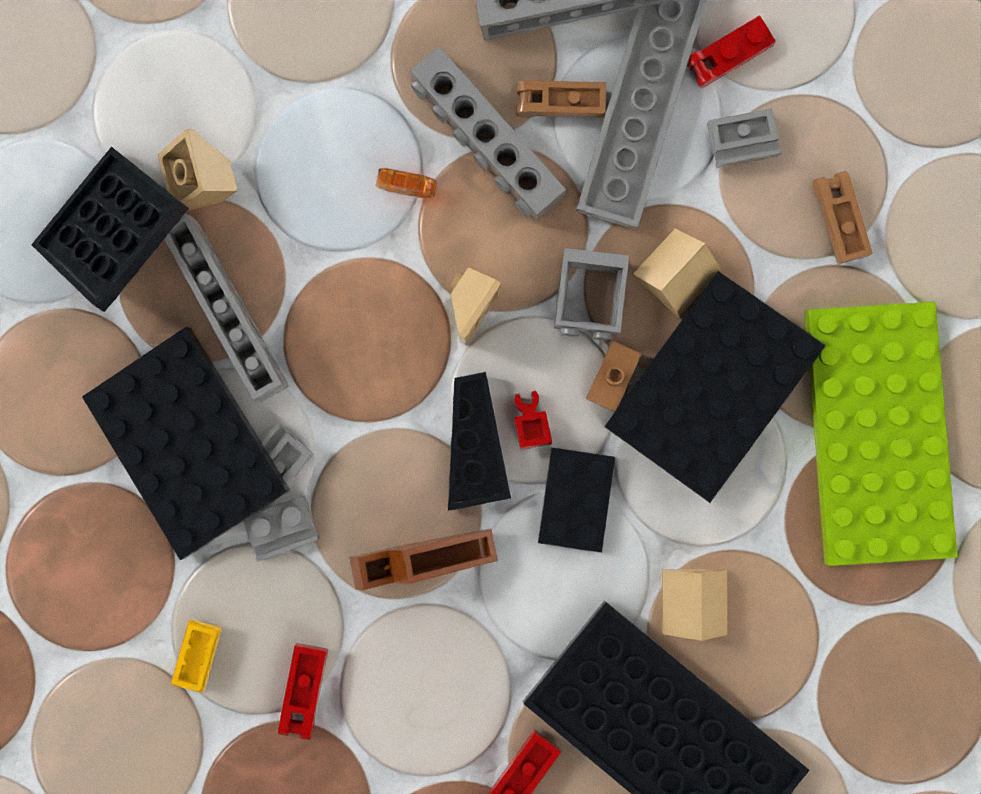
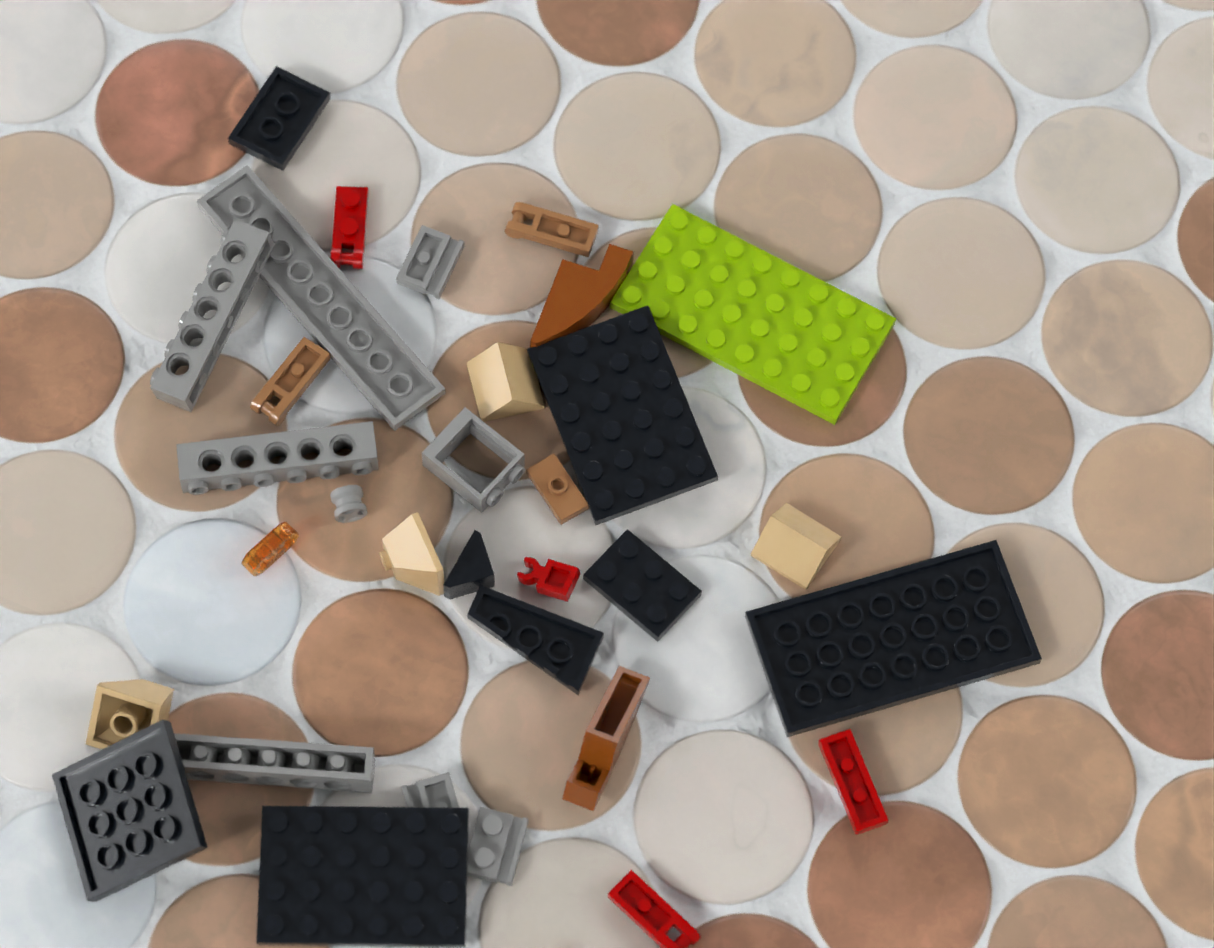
camera: 60 degrees left, 20 degrees down
(485, 218) = (348, 503): none -> light grey wheel
(495, 355) = (470, 570): none -> black slope
(797, 282) = (581, 295): none -> dark orange slope

